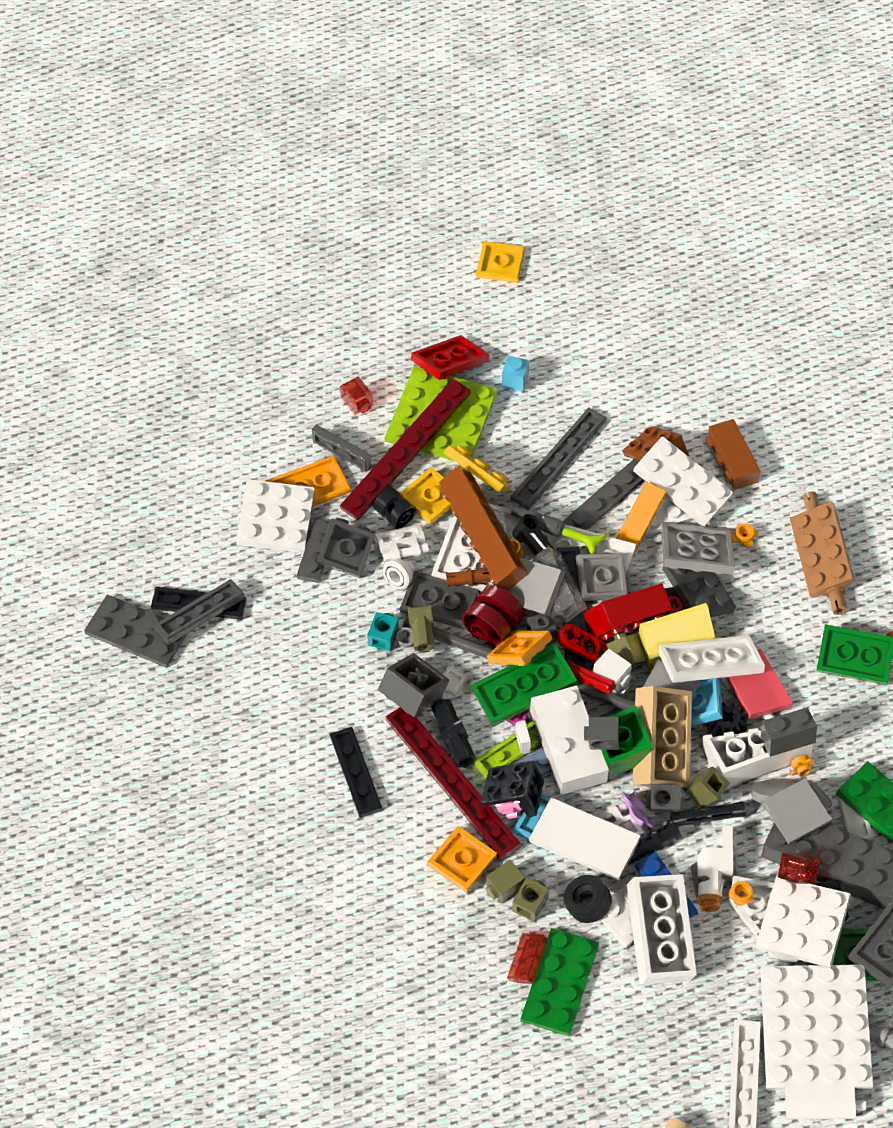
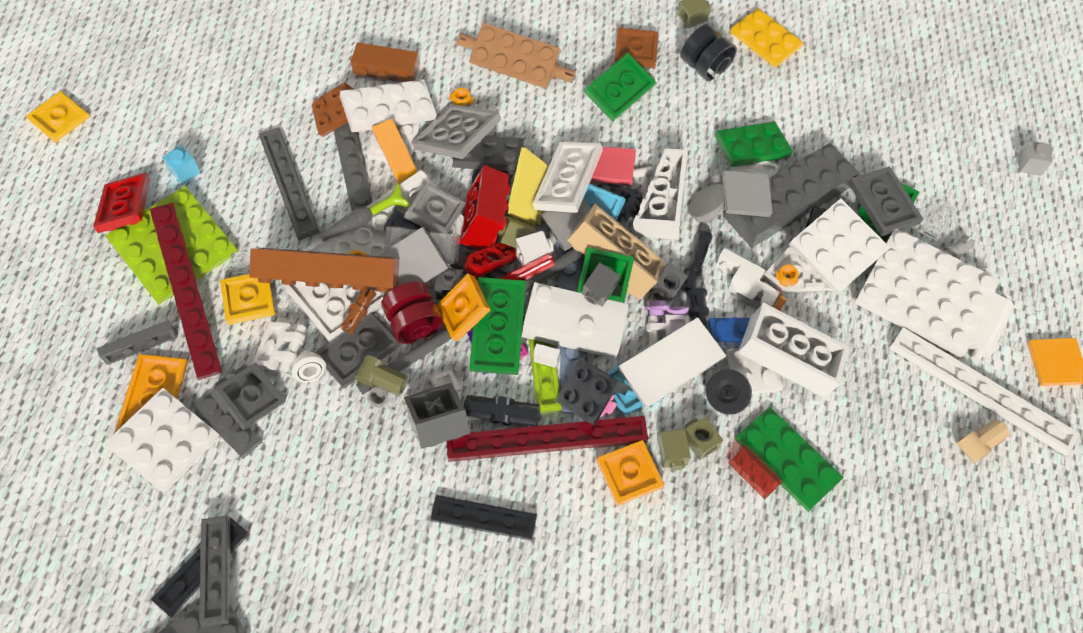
camera: 65 degrees left, 5 degrees up
(356, 396) = (94, 299): clear red brick -> none
(381, 639) = (360, 421): teal brick -> none
(394, 508) = (230, 336): black wheel -> none
(479, 468) = (256, 240): yellow plate -> none
(528, 532) = (355, 237): black piece -> none
(707, 786) = (677, 246): olive brick -> none
(788, 731) = (676, 158): dark grey brick -> none
(798, 868) = (798, 220): clear red brick -> none
(802, 765) = (693, 174): light orange plate -> none

